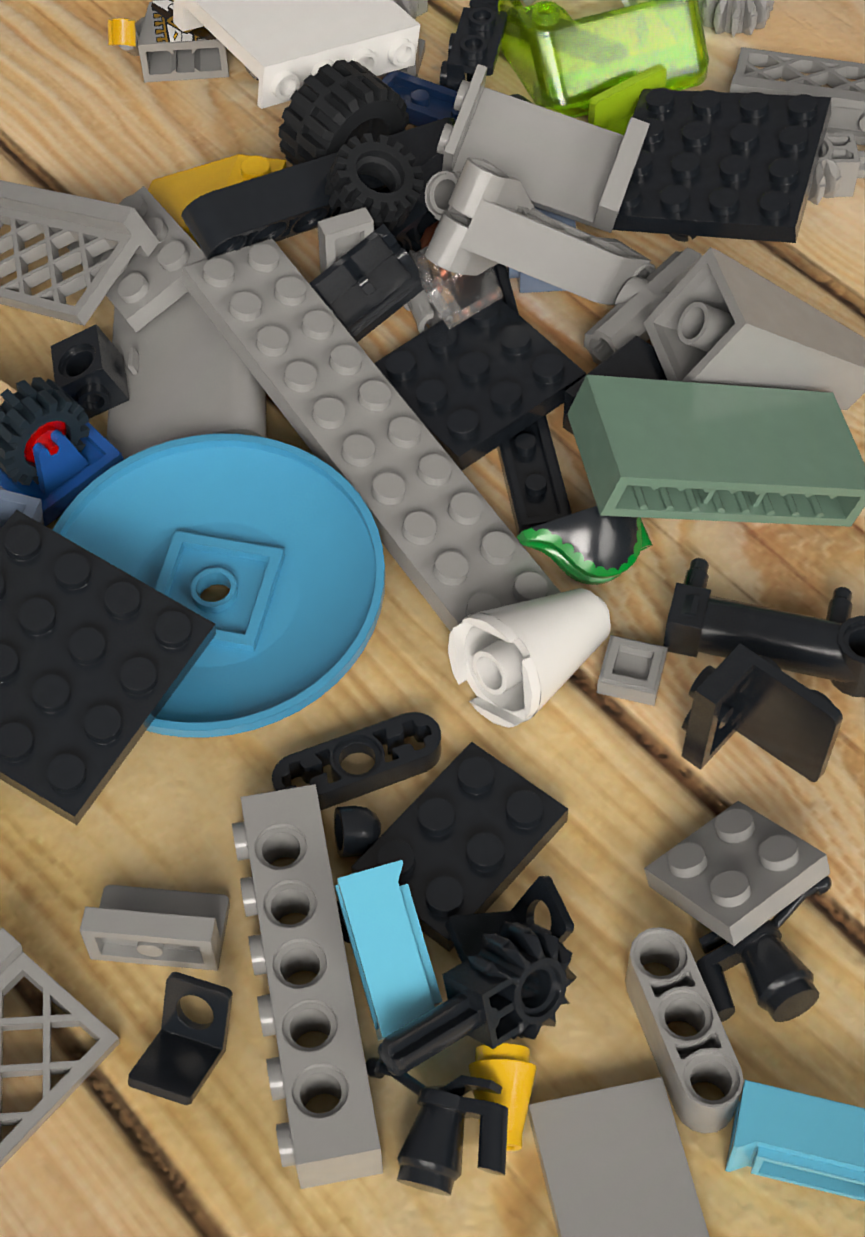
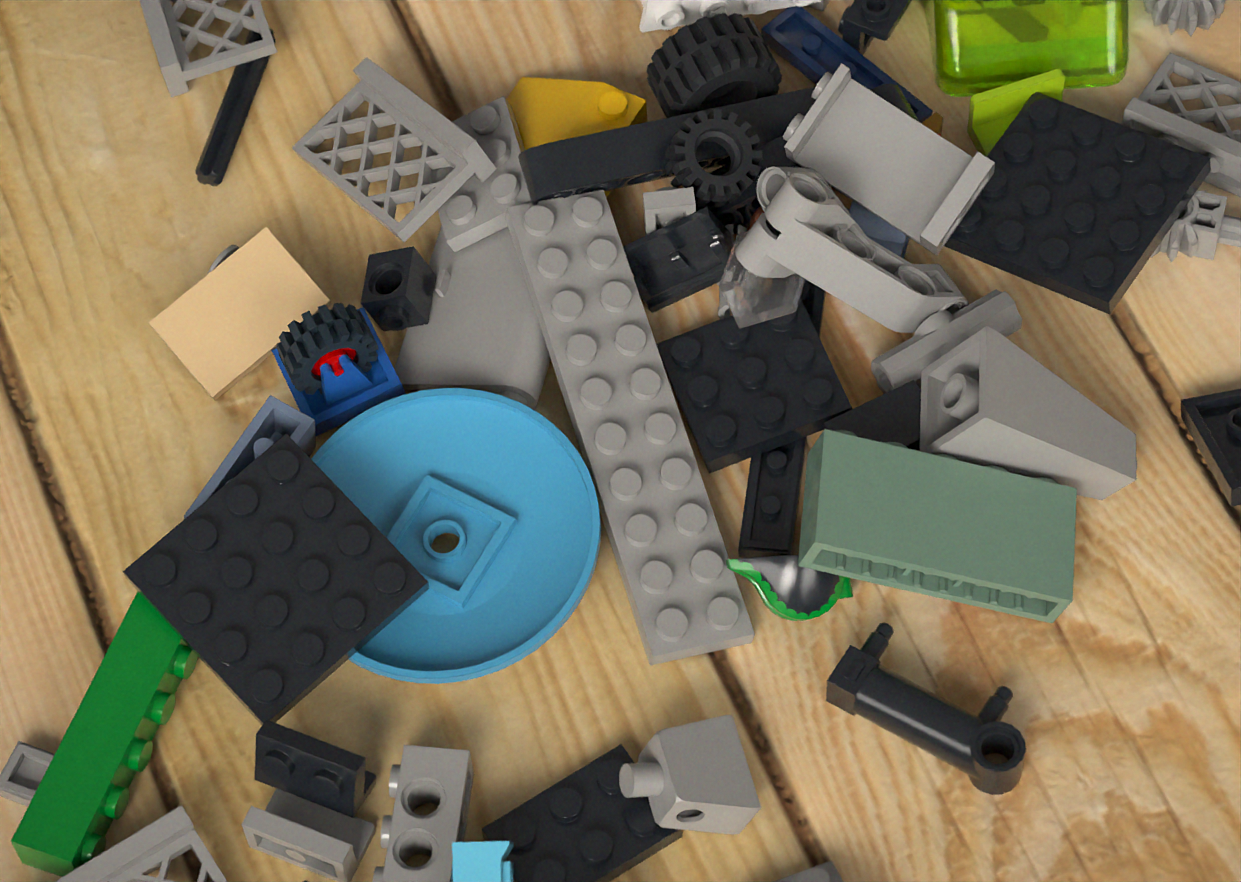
camera: 20 degrees right, 5 degrees up
(141, 849) = (311, 769): none -> black bracket
(355, 830) = (497, 796): black hinge -> none
(369, 740) = (533, 717): black beam -> none
(526, 651) = (699, 671): white cone -> none
(569, 751) = (695, 778): none -> light grey torso
(632, 670) = (789, 713): light grey tile -> none
(766, 707) = (858, 767): black bracket -> none

